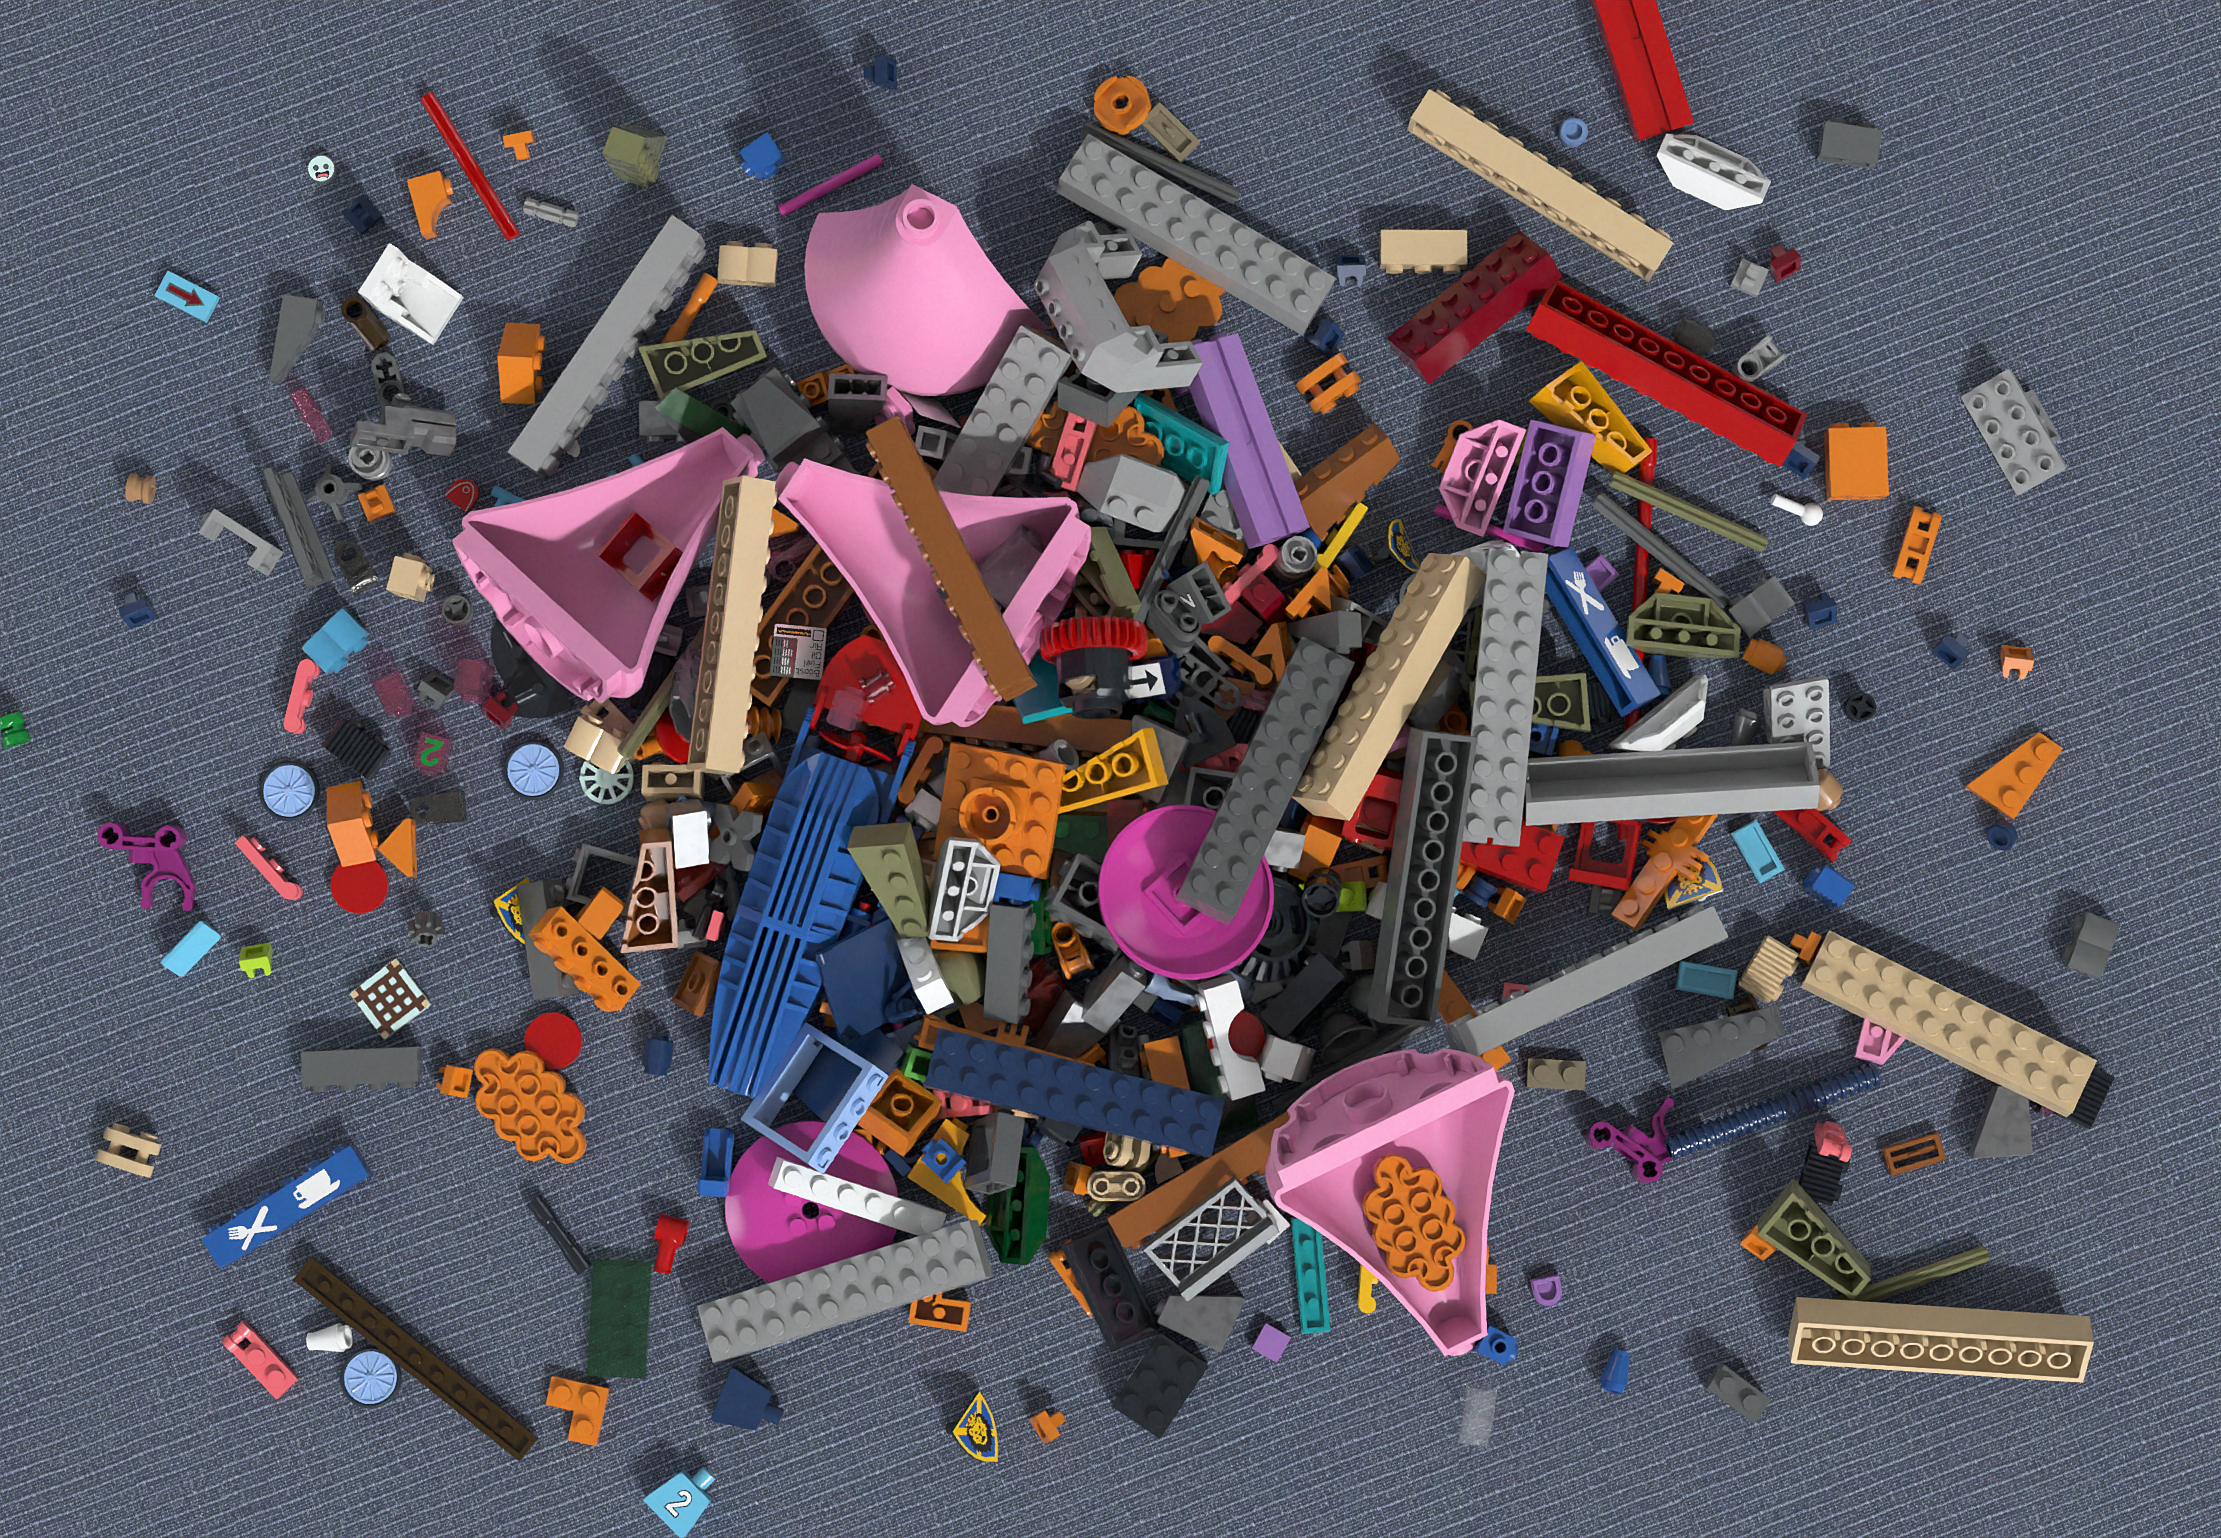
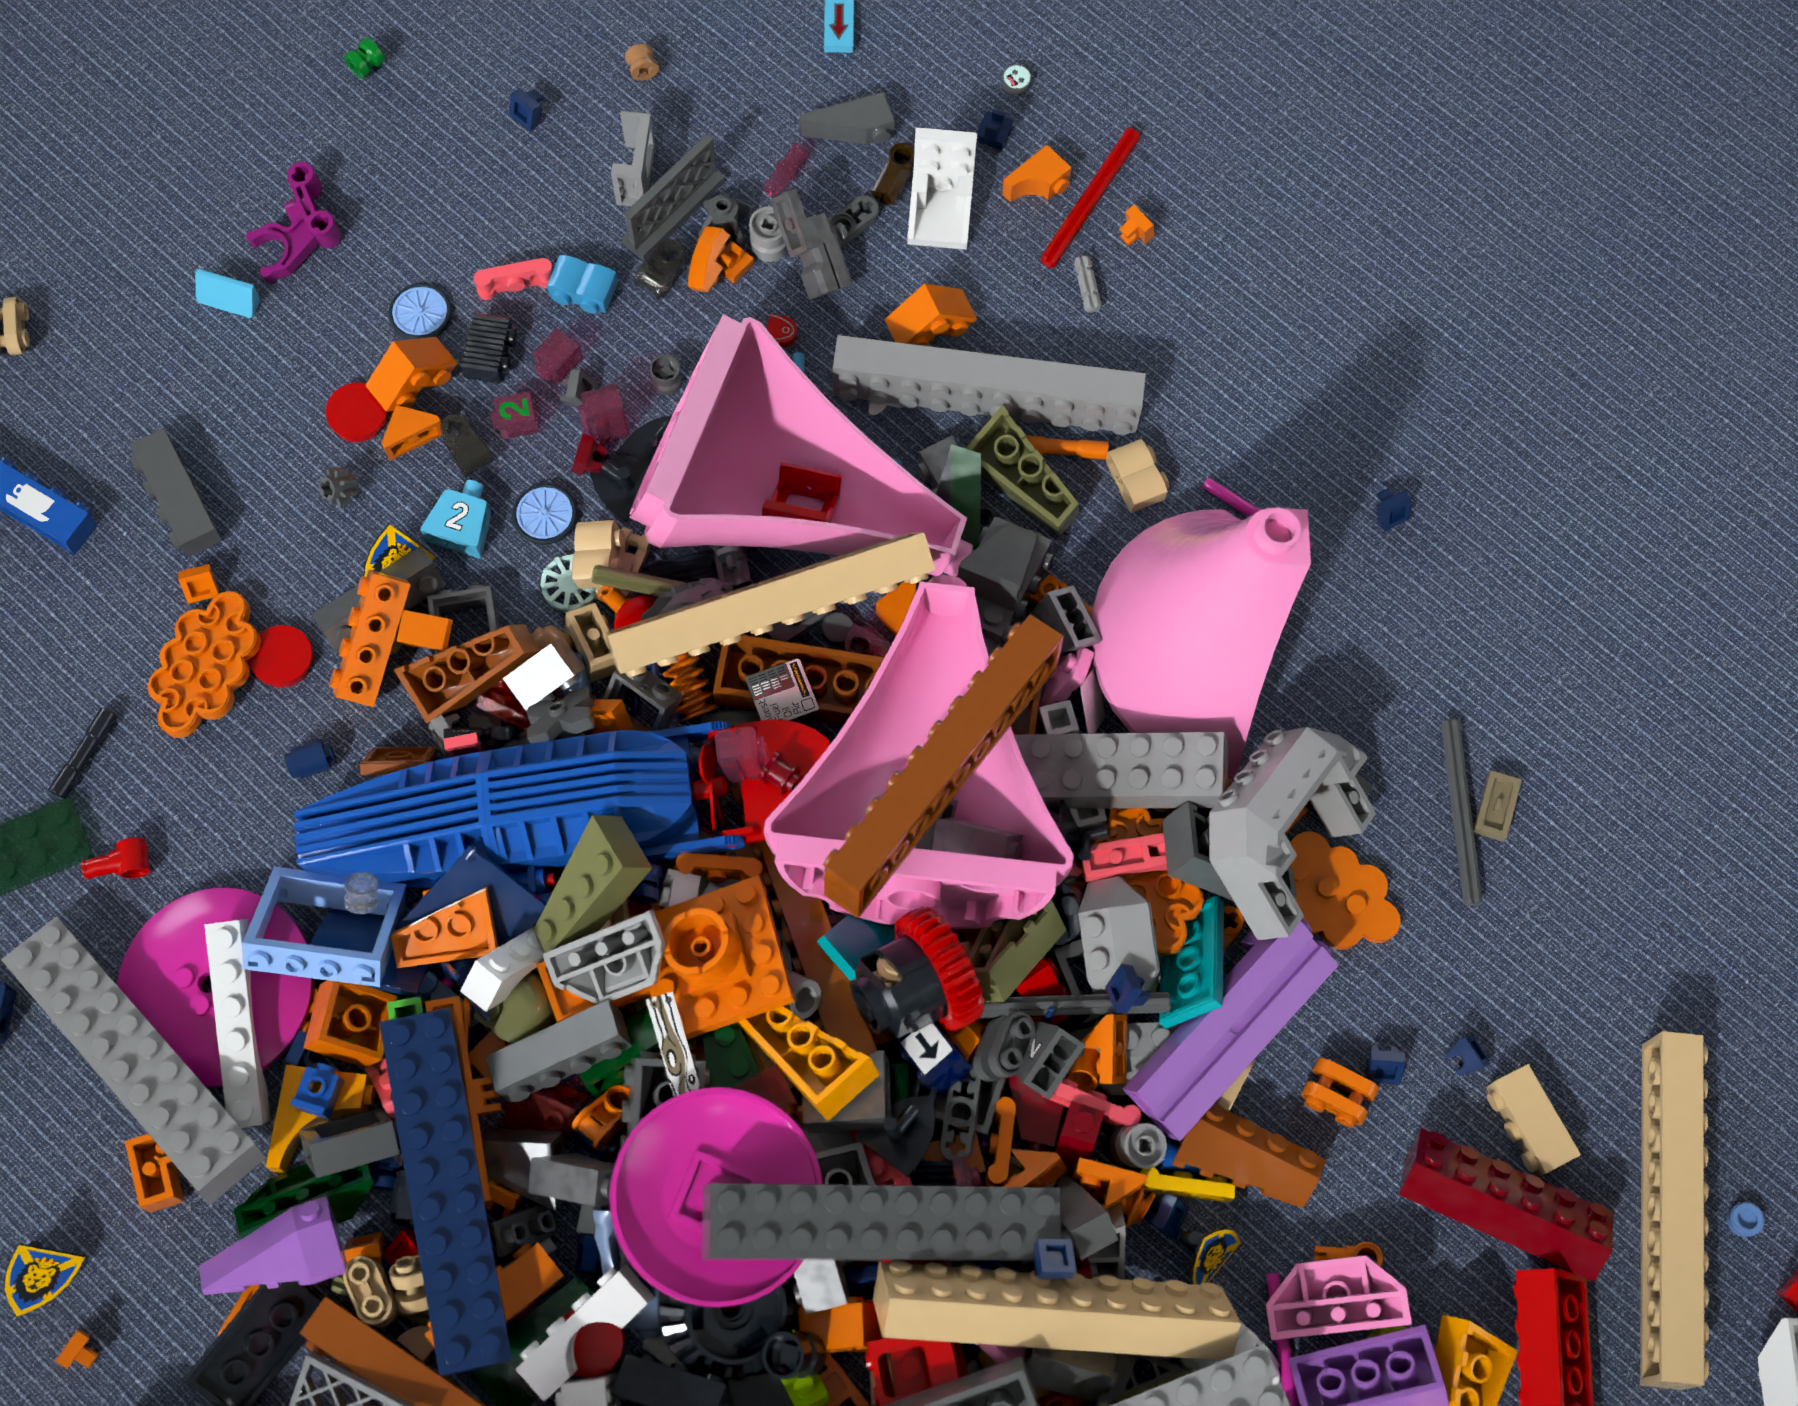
camera: 55 degrees right, 15 degrees down
(256, 957) = (242, 352): lime tile -> none
(270, 869) = (334, 324): coral plate -> none
(373, 531) = (703, 267): none -> orange slope
(390, 999) = (256, 489): tile -> none
(410, 577) = (674, 314): tan brick -> none
(506, 842) = (459, 521): none -> medium azure torso
(634, 153) = (1183, 316): olive wedge -> none
(716, 1162) = (219, 868): blue animal -> none
(761, 158) = (1246, 439): blue brick -> none
(802, 1058) = (361, 893): none -> clear wheel
(871, 1004) = (449, 934): none -> orange wing
(1016, 888) = (636, 1018): blue brick -> none
(1054, 1236) = (292, 1247): none -> medium lavender wedge
(1056, 871) = (673, 1043): none -> sticker
(1121, 119) = (1491, 758): orange plate -> none
(1179, 508) = (1126, 989): none -> dark blue tile
(1195, 234) = (1412, 882): light grey brick -> none
(1353, 667) = (1054, 1258): none -> dark blue tile

